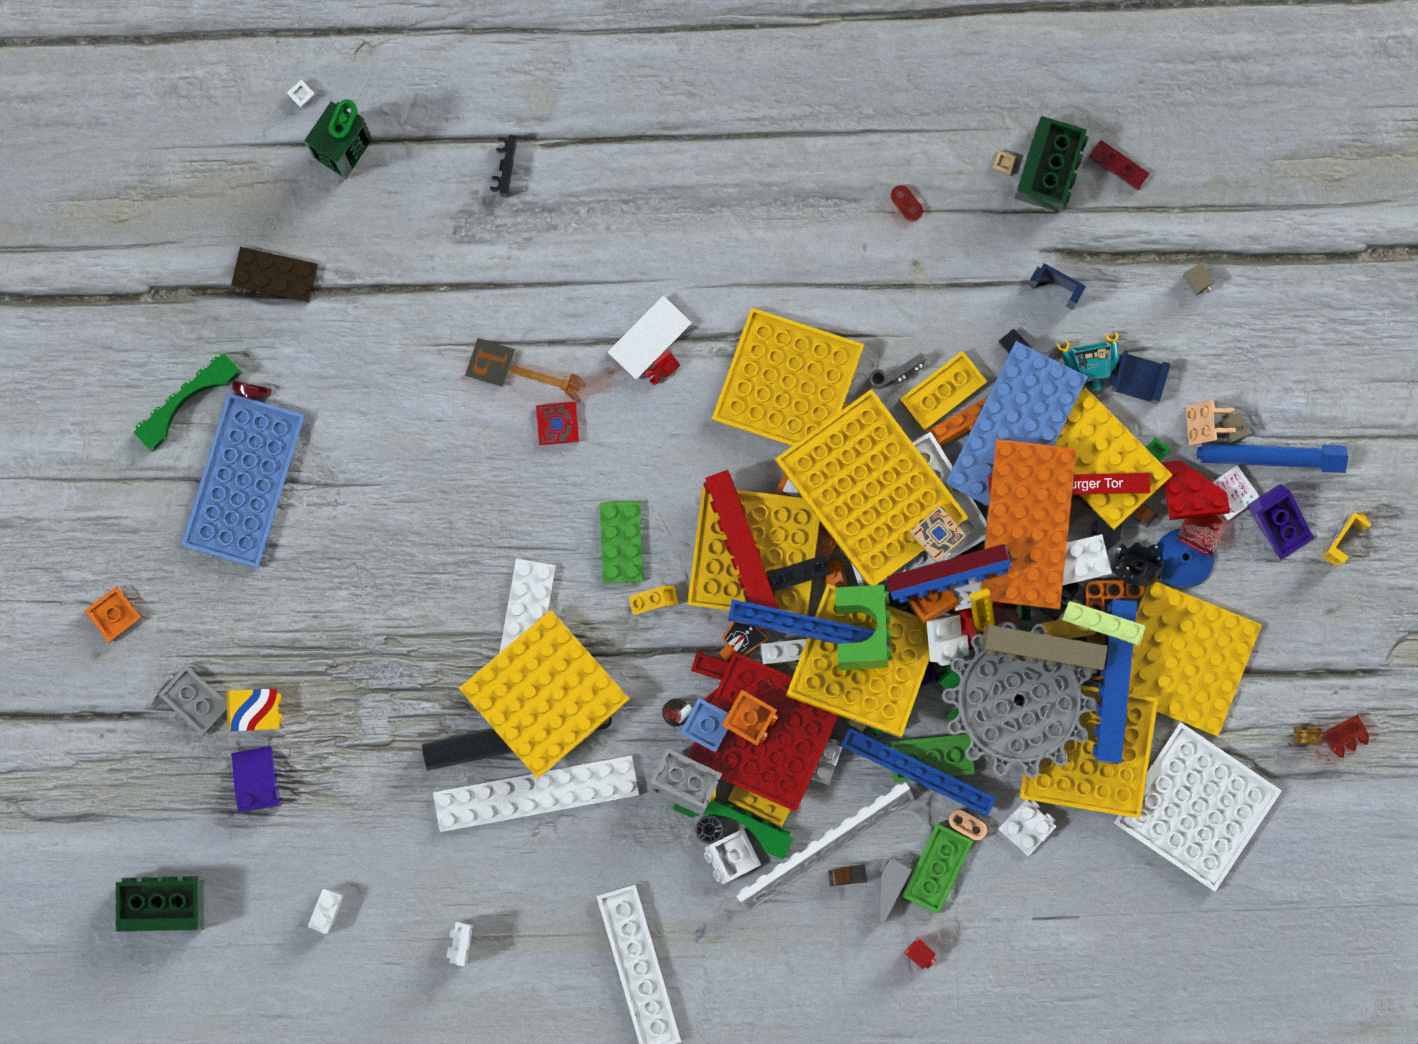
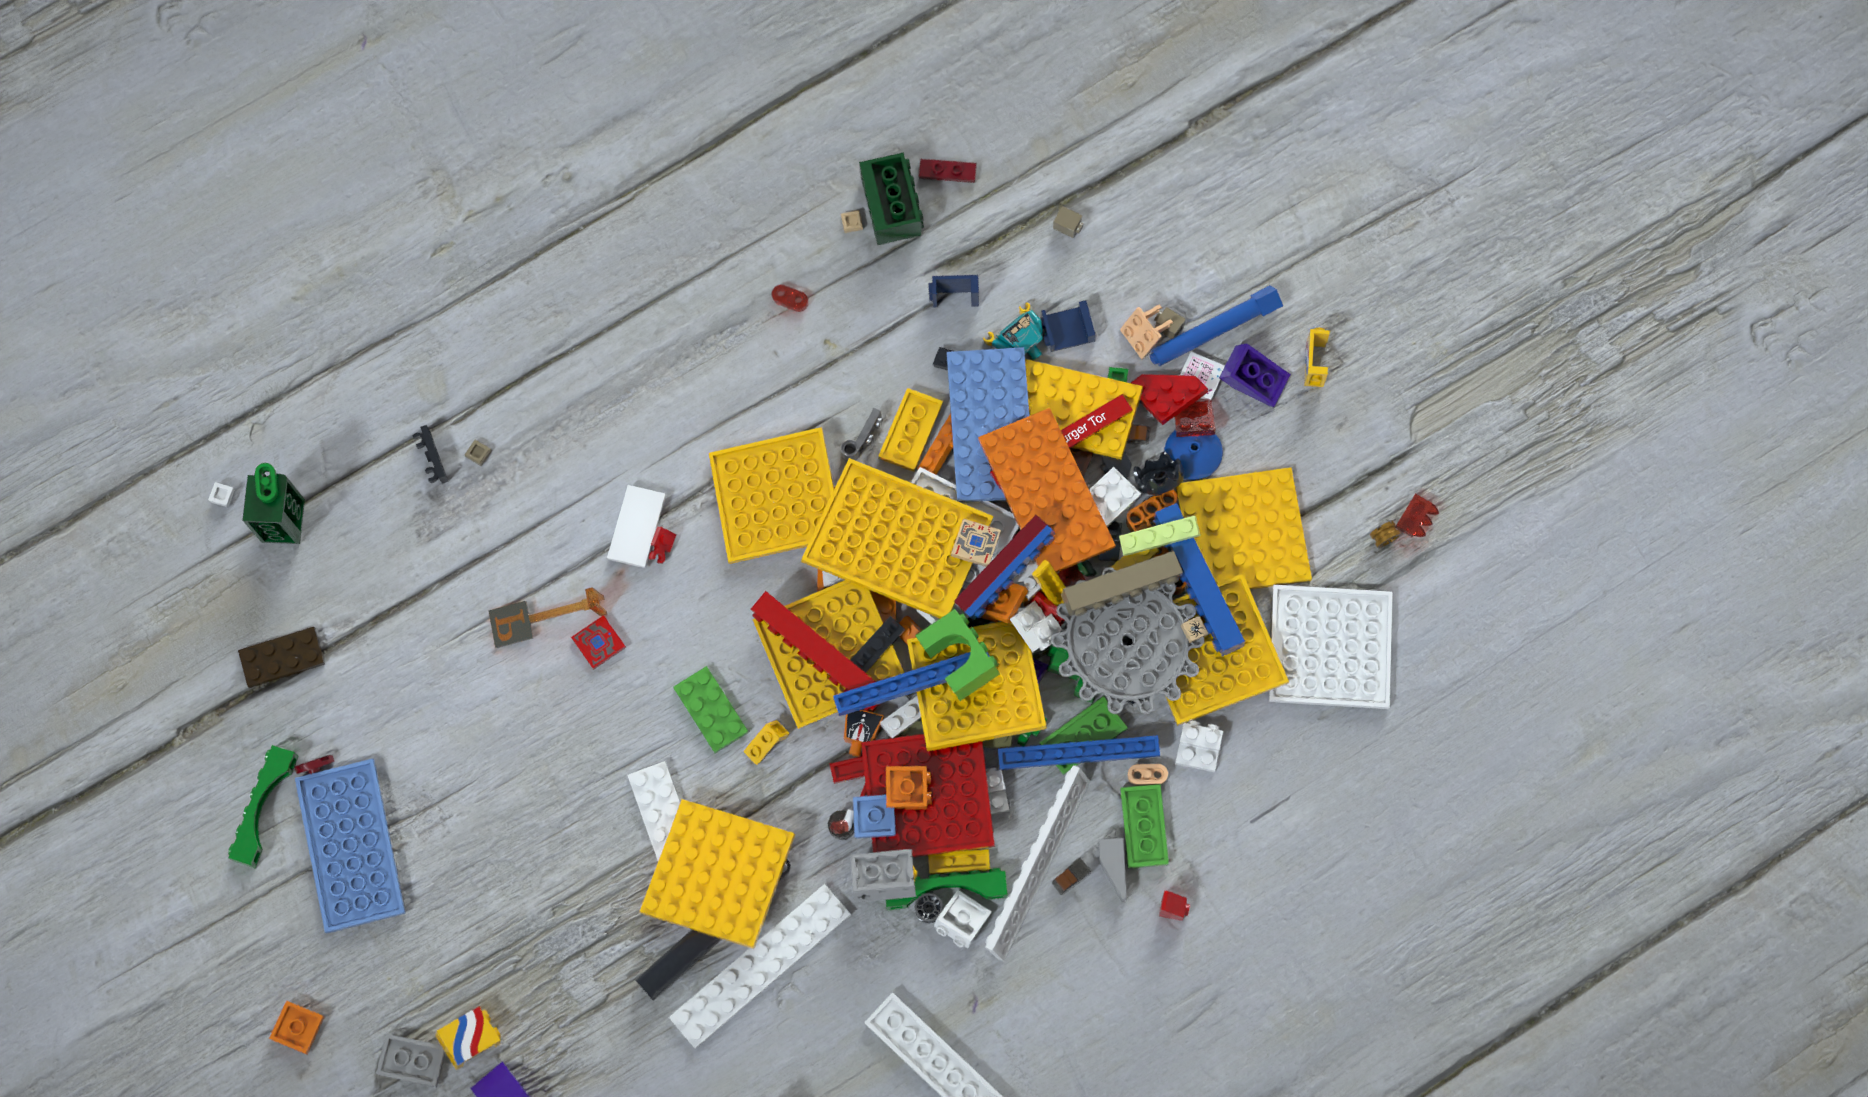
camera: 25 degrees left, 10 degrees down
(547, 186) = (478, 452): none -> dark tan tile
(1084, 724) = (1194, 629): none -> tan tile

